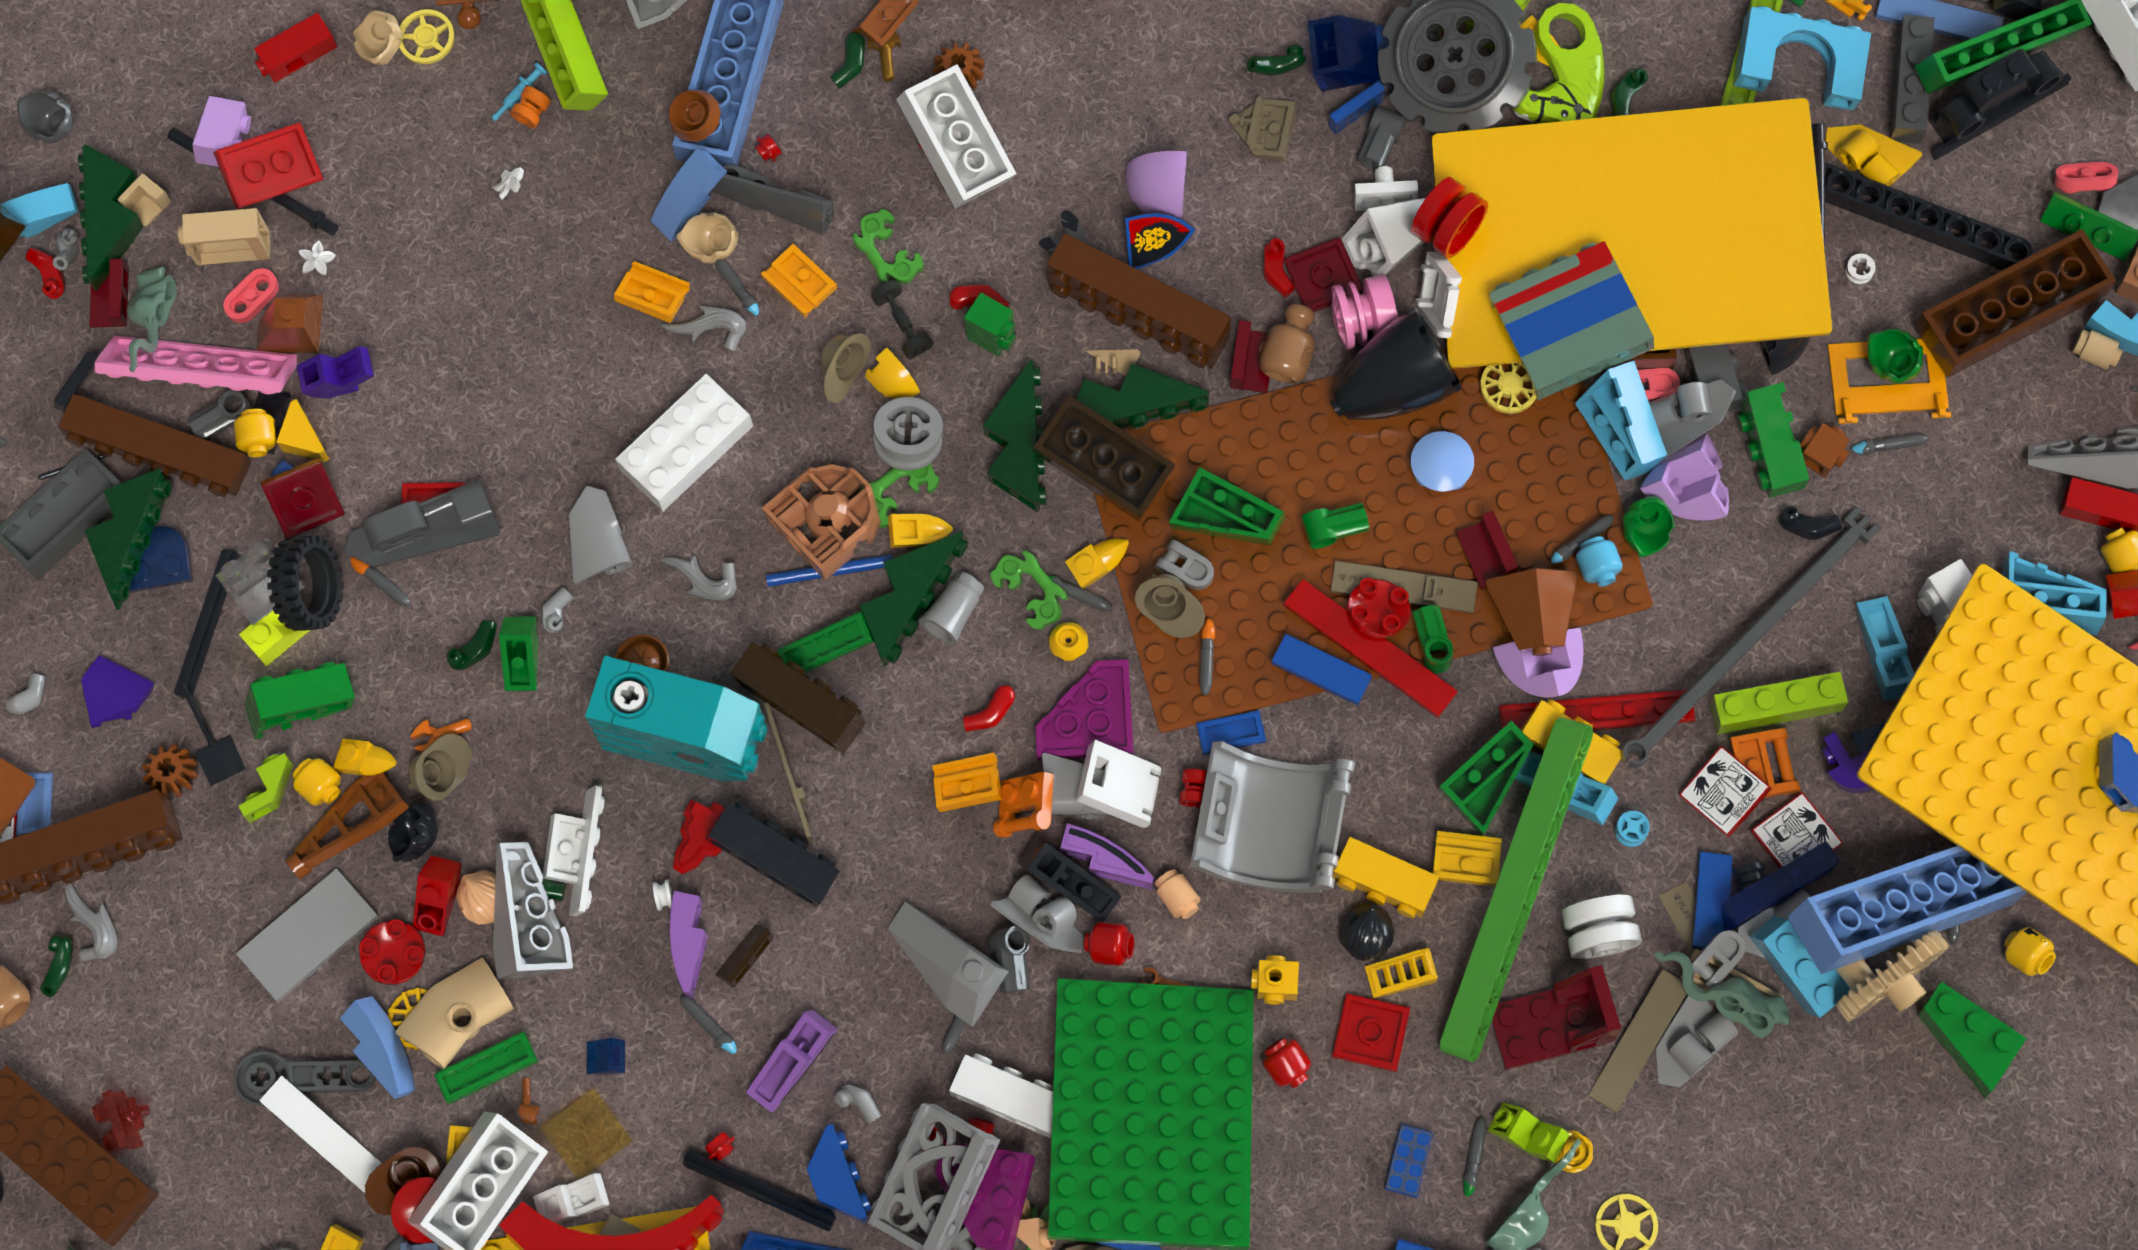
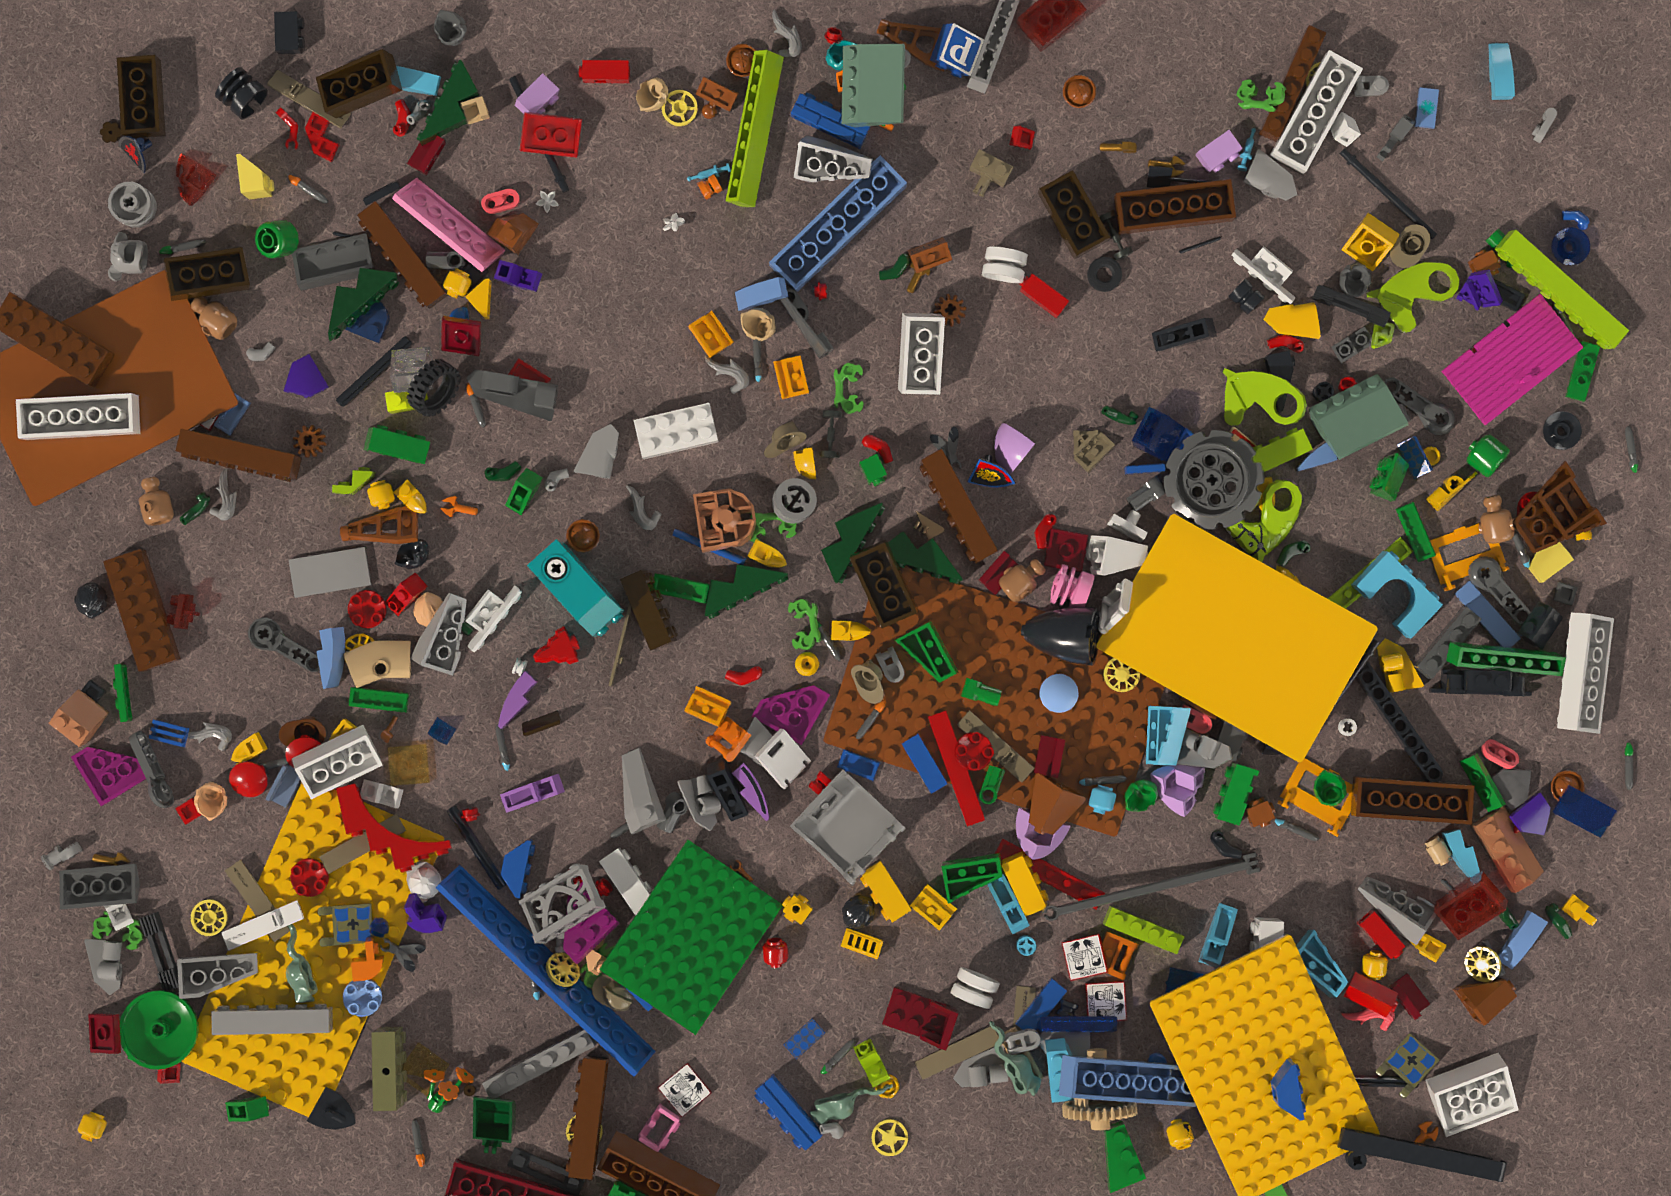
camera: 30 degrees right, 15 degrees up
(150, 309) = (442, 177): sand green animal -> none
(219, 759) = (339, 449): black piece -> none
(225, 236) = (504, 161): tan window -> none
(320, 1132) = (278, 682): white piece -> none
(440, 767) = (447, 528): dark tan piece -> none
(694, 115) = (790, 254): dark orange hat -> none
(772, 854) = (586, 684): black brick -> none
(860, 1098) = (554, 834): light grey arm -> none
(952, 608) = (758, 610): light grey plant -> none
(1109, 944) = (726, 836): red head -> none
(1177, 894) = (776, 832): light nougat brick -> none
(1371, 1032) = (827, 962): red tile -> none
(1449, 217) = (1146, 569): red wheel -> none
(1516, 889) = (946, 941): bright green beam -> none
(1572, 319) = (1172, 666): panel -> none
(1845, 773) = (1154, 988): dark purple brick -> none

